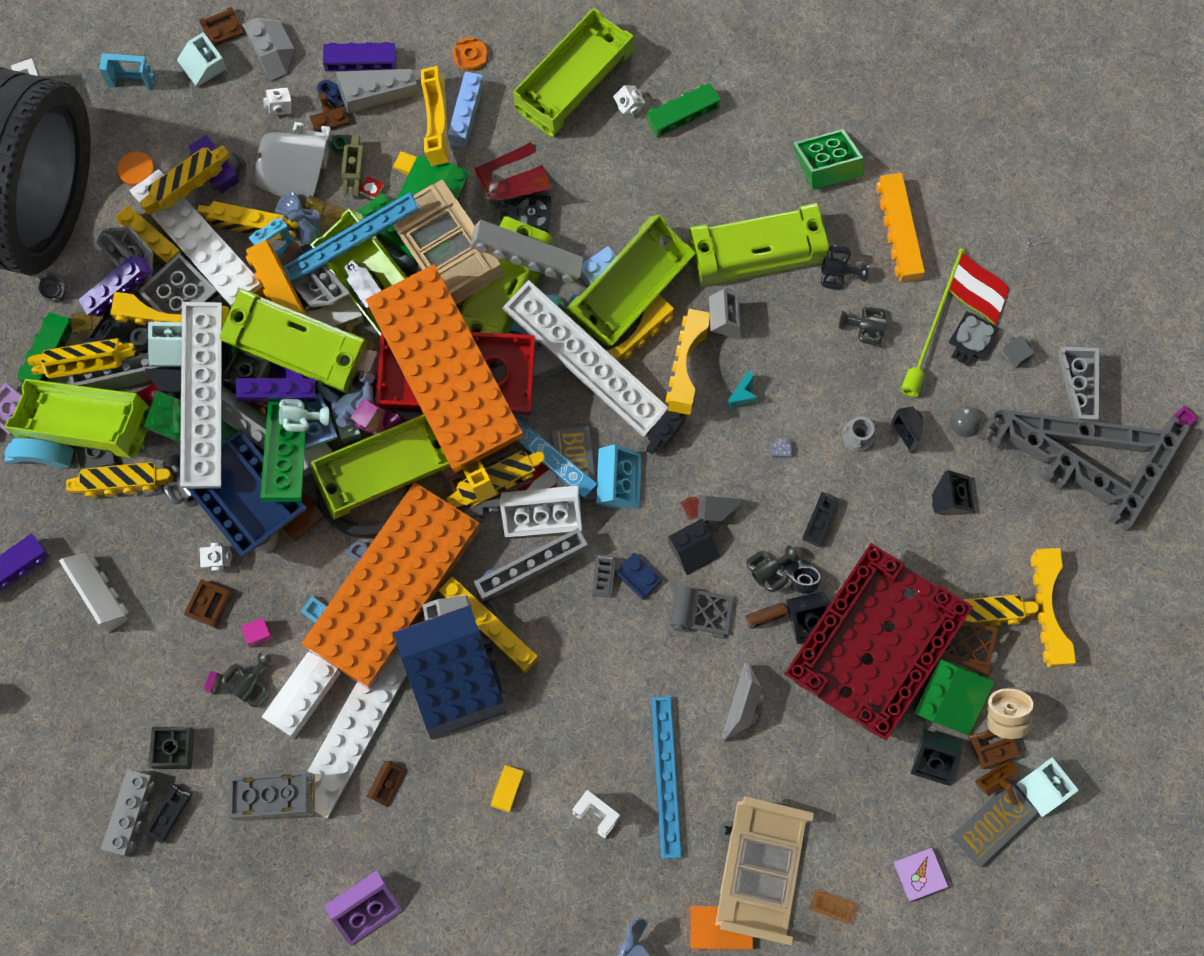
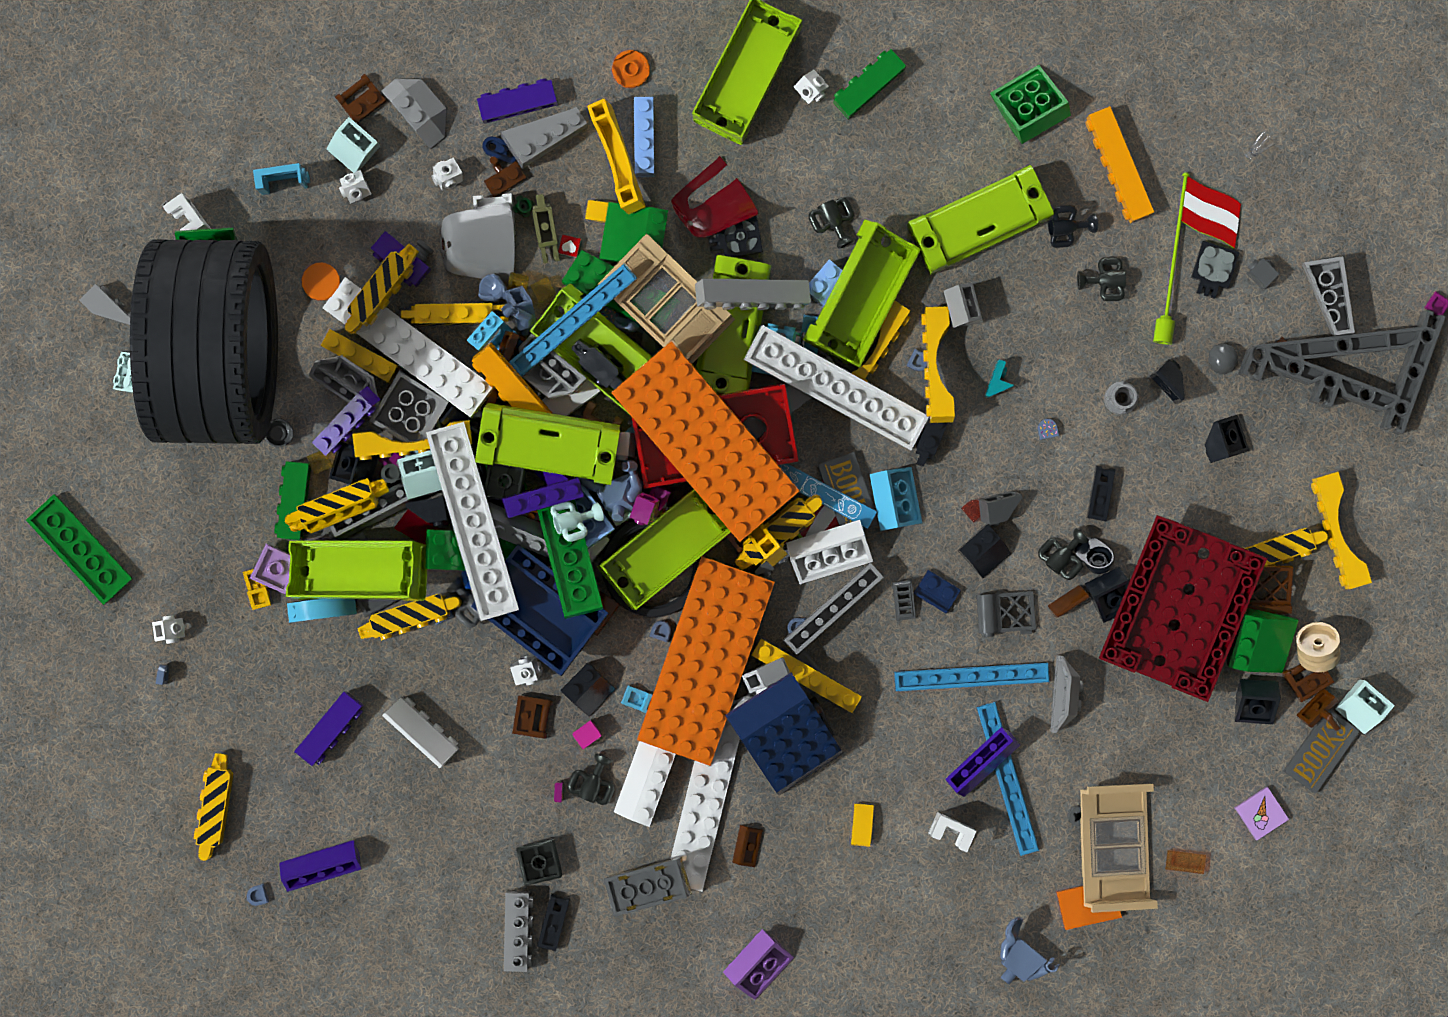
camera: 15 degrees left, 15 degrees up
(191, 94) = (354, 187): none -> white brick
(270, 589) = (587, 689): none -> black slope
(620, 213) = (832, 217): none -> pearl dark grey piece
(643, 750) = (982, 762): none -> dark purple brick
(653, 666) = (971, 677): none -> dark azure tile
(668, 358) = (916, 361): none -> sand blue tile

